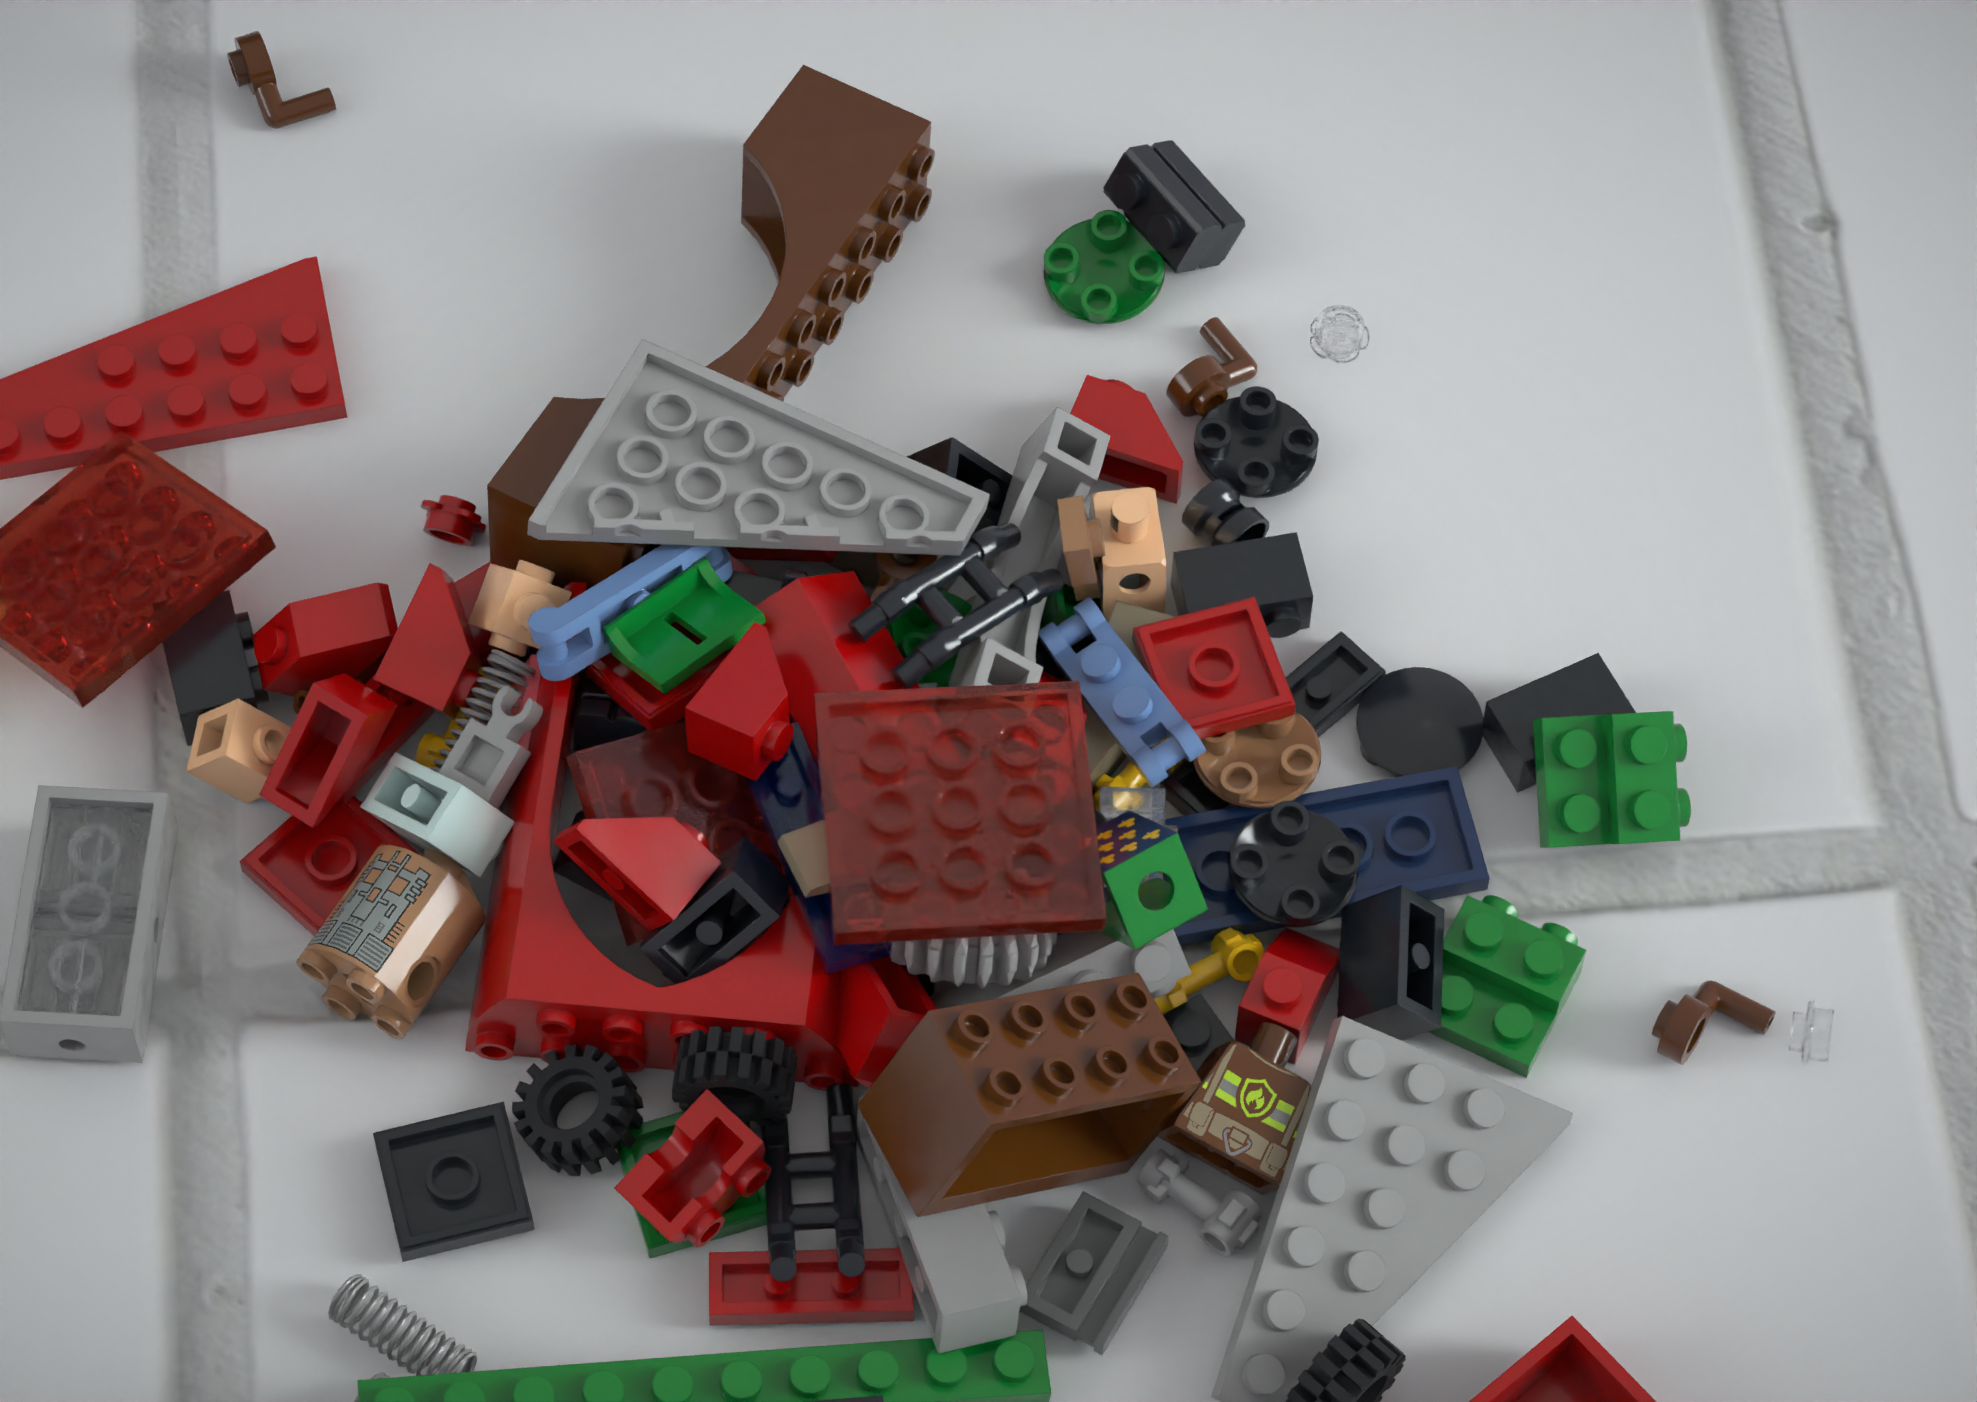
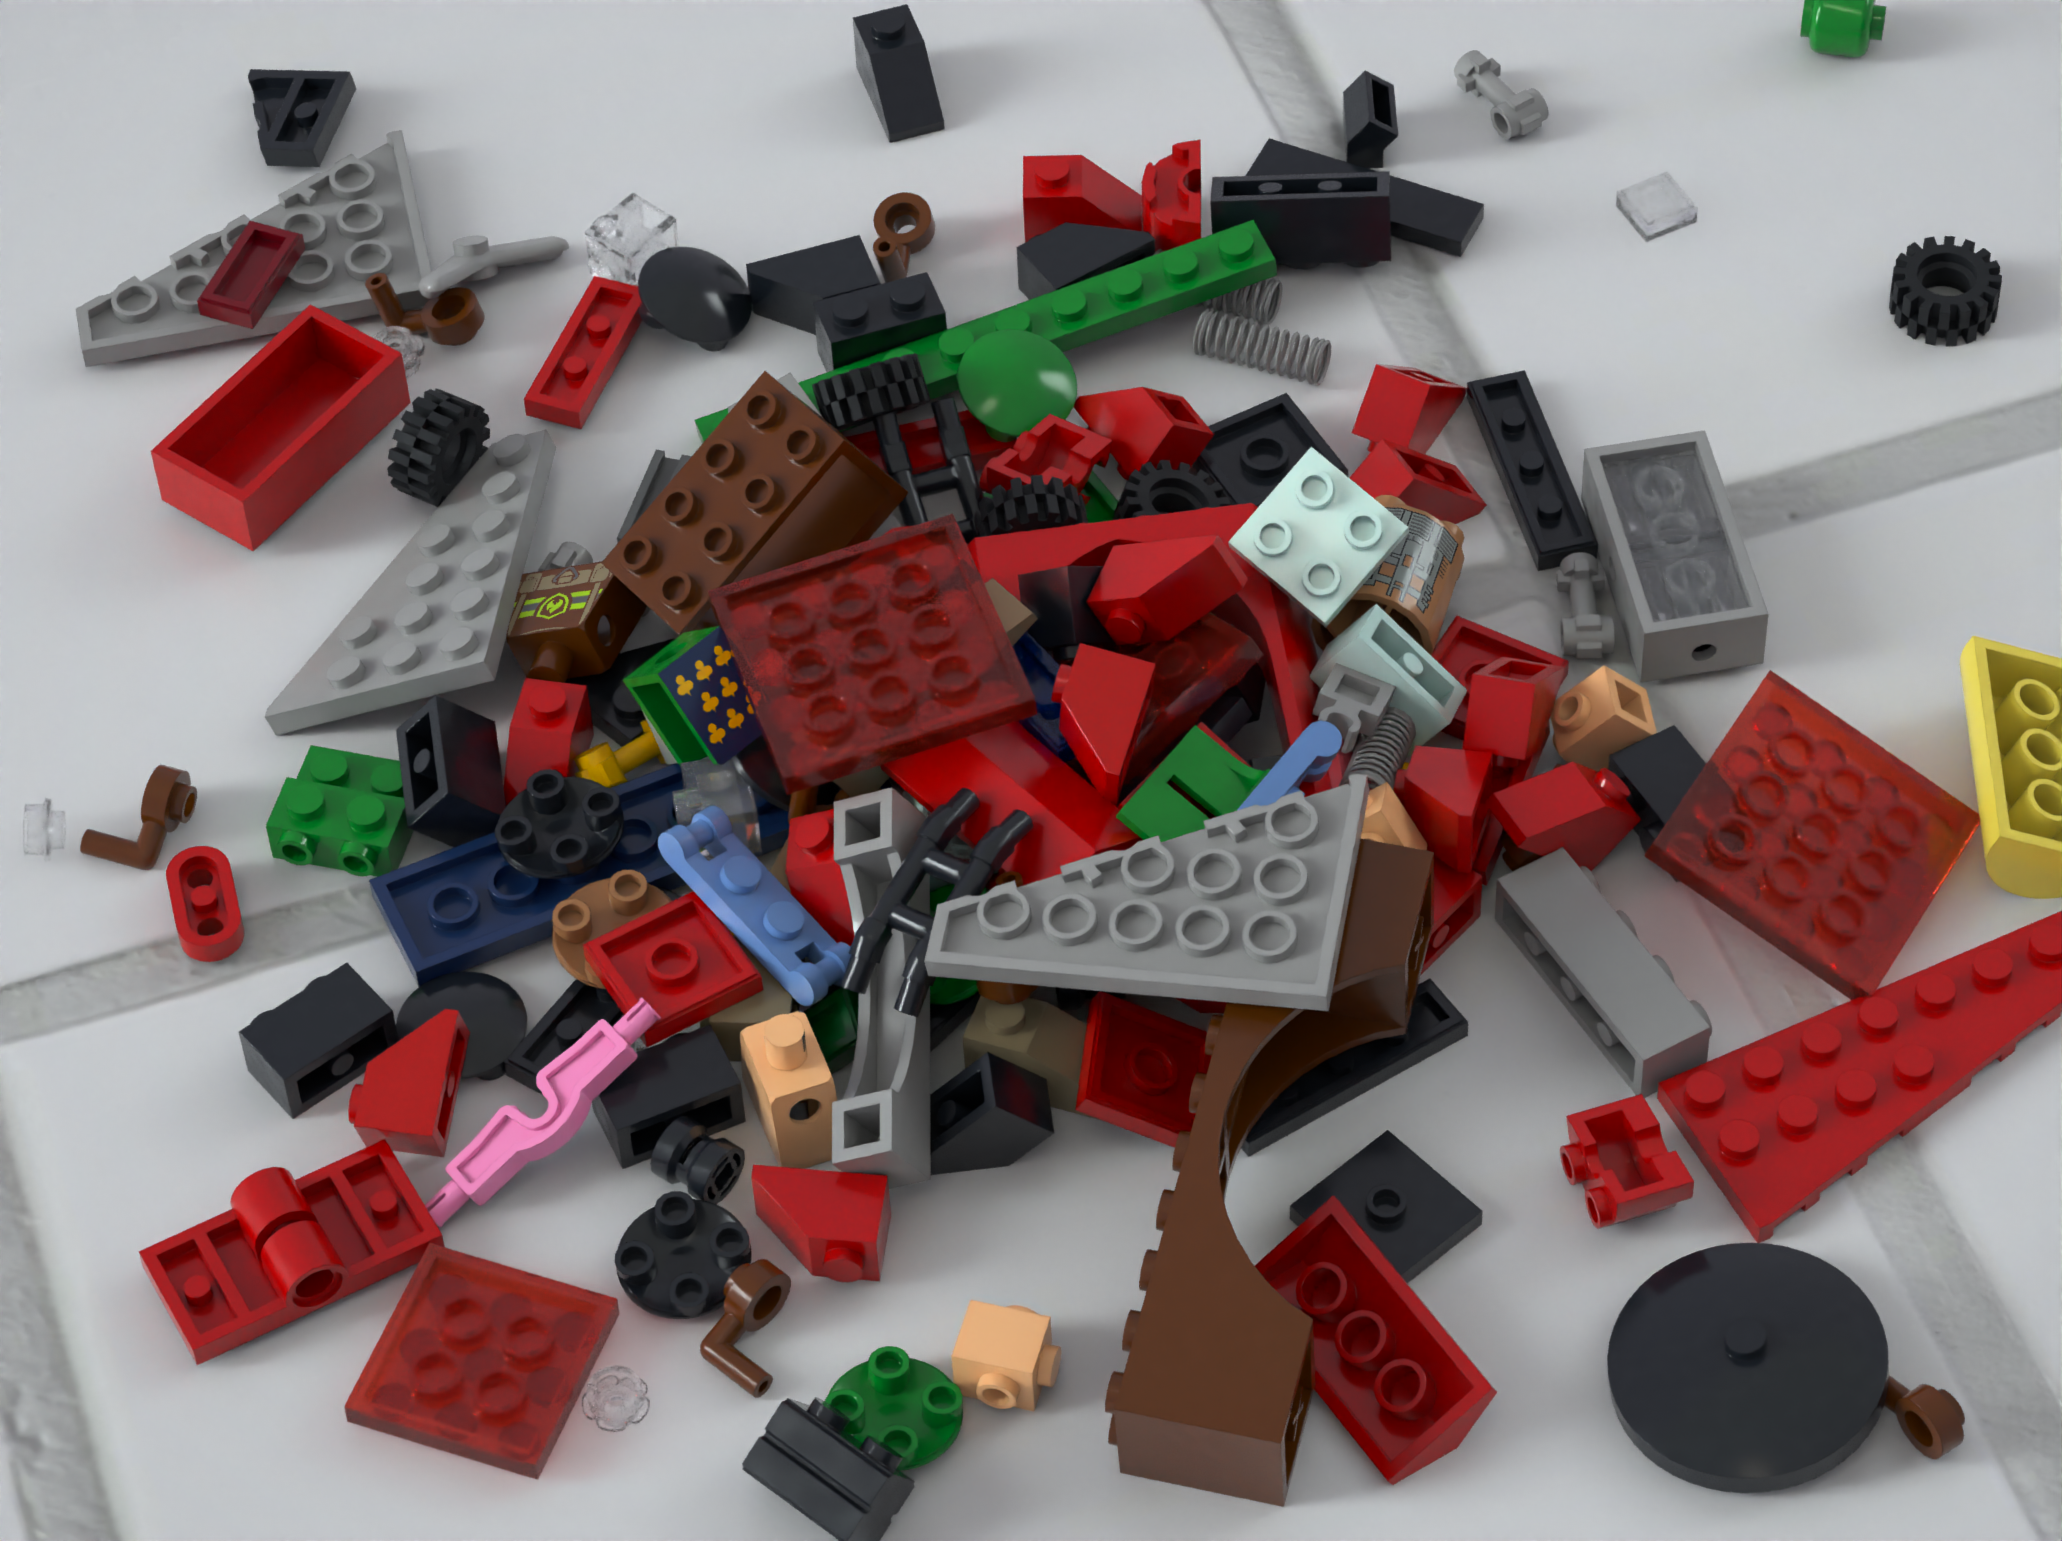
camera: 170 degrees right, 10 degrees down
(177, 1117) = (1530, 469): none -> black tile
(206, 885) = (1585, 632): none -> light grey bar
(275, 1201) = (1406, 407): none -> red slope
(319, 1084) = (1418, 482): none -> red slope
(344, 496) = (1602, 971): none -> light grey brick
(379, 144) = (1748, 1367): none -> black dish
(407, 314) = (1623, 1162): none -> red cylinder
(452, 520) = (1497, 976): red plate -> none
(459, 899) = (1318, 537): none -> light aqua plate
(571, 1229) = (1145, 427): none -> red slope
(604, 336) = (1398, 1204): none -> black plate
(689, 233) = (1377, 1346): none -> red slope
(692, 1298) = (1015, 382): none -> green dish
(858, 1325) = (872, 391): none -> black tyre
(998, 285) = (1004, 1355): none -> light nougat brick
(1081, 545) = (832, 1013): medium nougat plate -> none
(1334, 576) = (515, 1139): none -> bright pink piece
(1449, 390) = (482, 1361): none -> clear red plate
(1478, 635) = (413, 1088): none -> red slope
(1605, 525) = (289, 1249): none -> red plate
(1609, 779) = (249, 980): green plate -> none
(1654, 910) = (205, 908): none -> red plate

